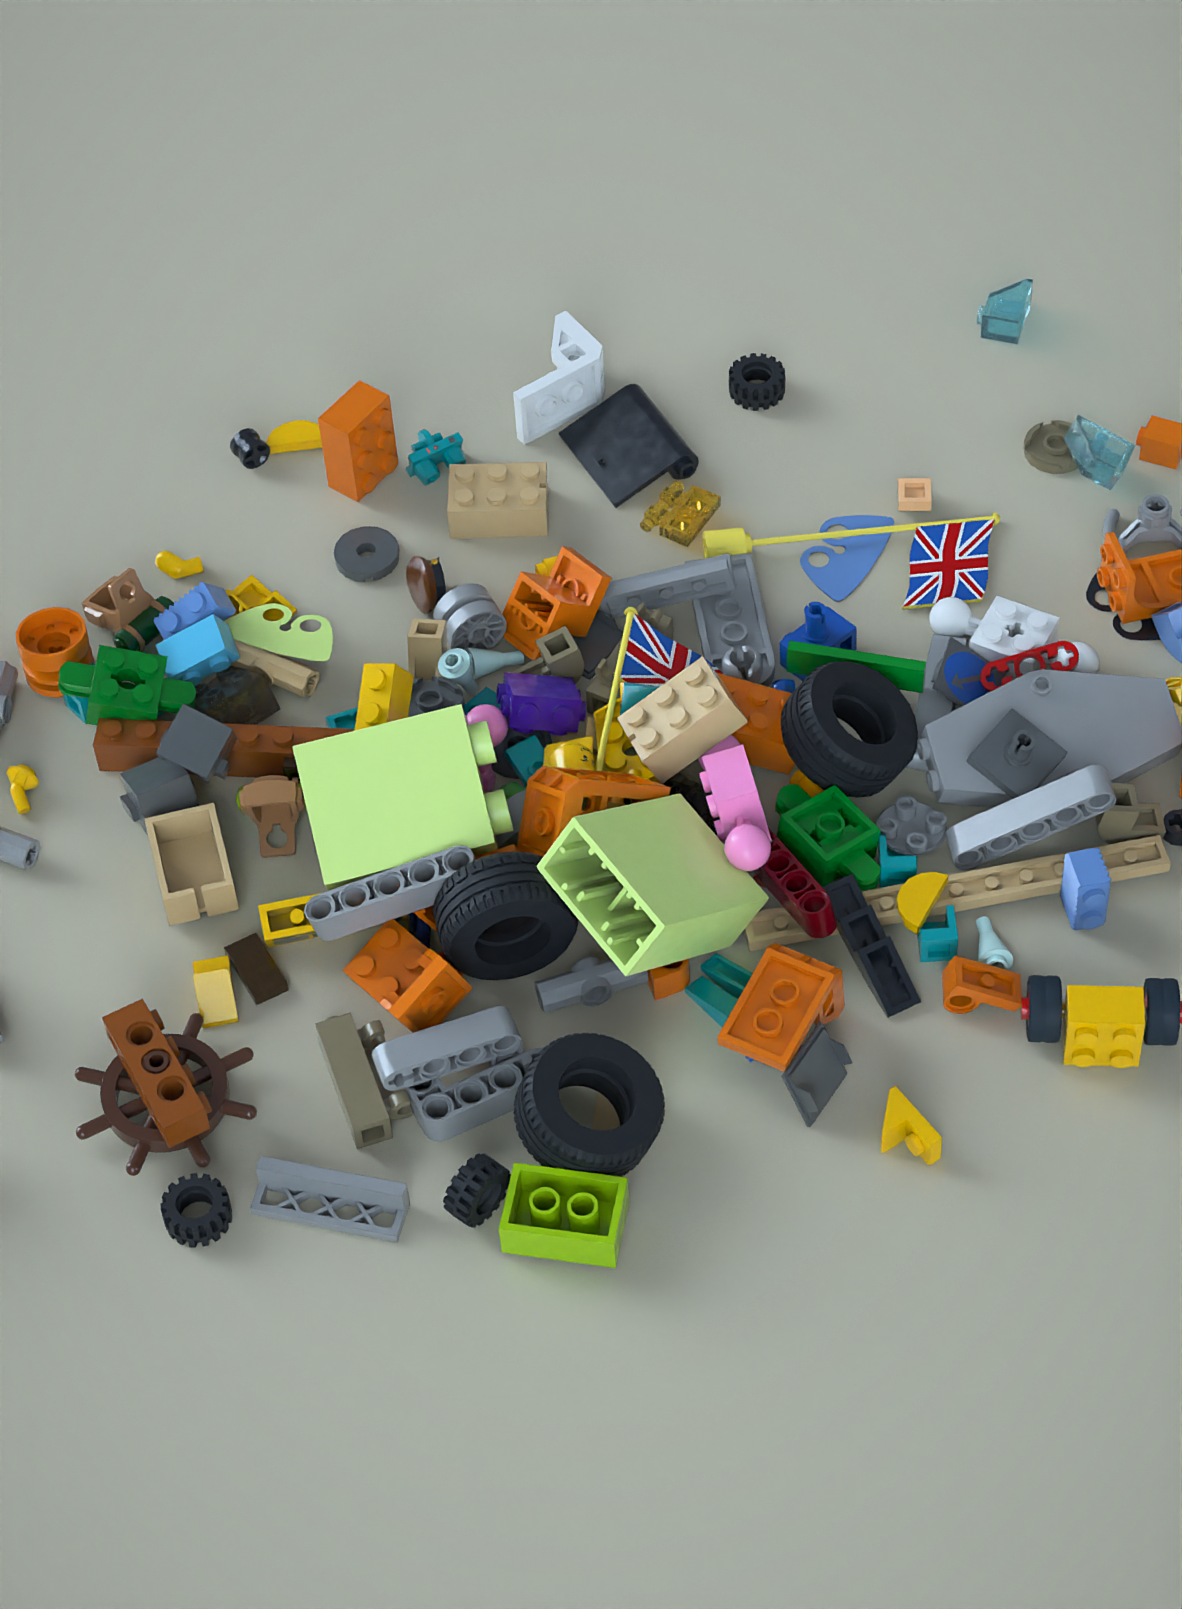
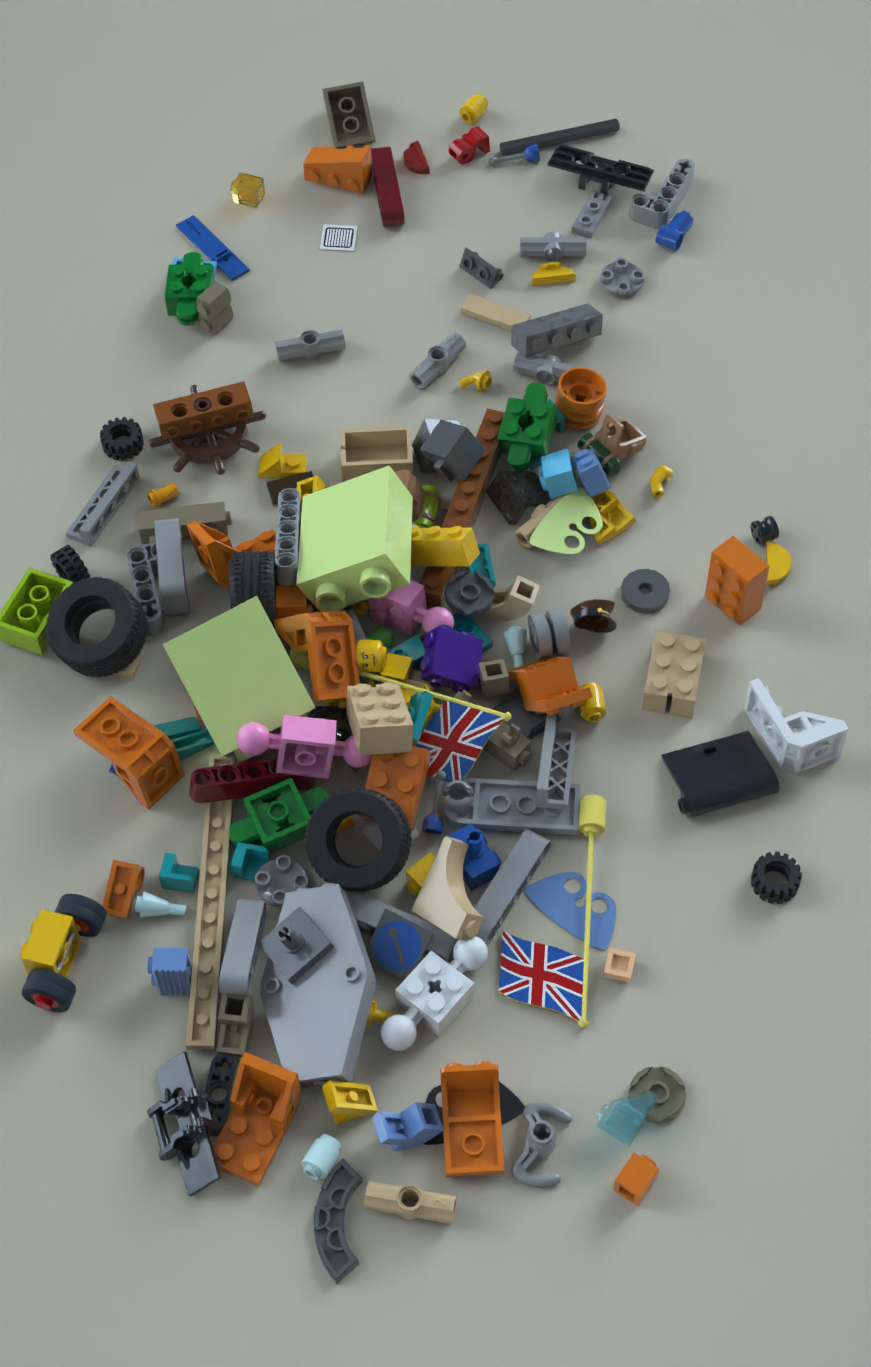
camera: 100 degrees right, 5 degrees up
(307, 1130) = (162, 495): none -> light orange pin
(433, 451) = (734, 652): teal hips -> none
(456, 666) = (495, 612): light aqua cone -> none
(688, 516) = (633, 799): clear yellow plate -> none
(816, 1073) = (80, 764): dark grey piece -> none
(869, 610) = (510, 882): none -> light grey beam
(871, 948) = (174, 827): black slope -> none
(902, 672) = (420, 860): green tile -> none
(905, 636) = (444, 896): none -> tan arch
(906, 1123) = (34, 816): yellow slope -> none
(918, 898) = (204, 861): yellow tile -> none
(1006, 312) = (827, 1094): clear light blue slope -> none
(1051, 649) = (394, 994): red beam -> none

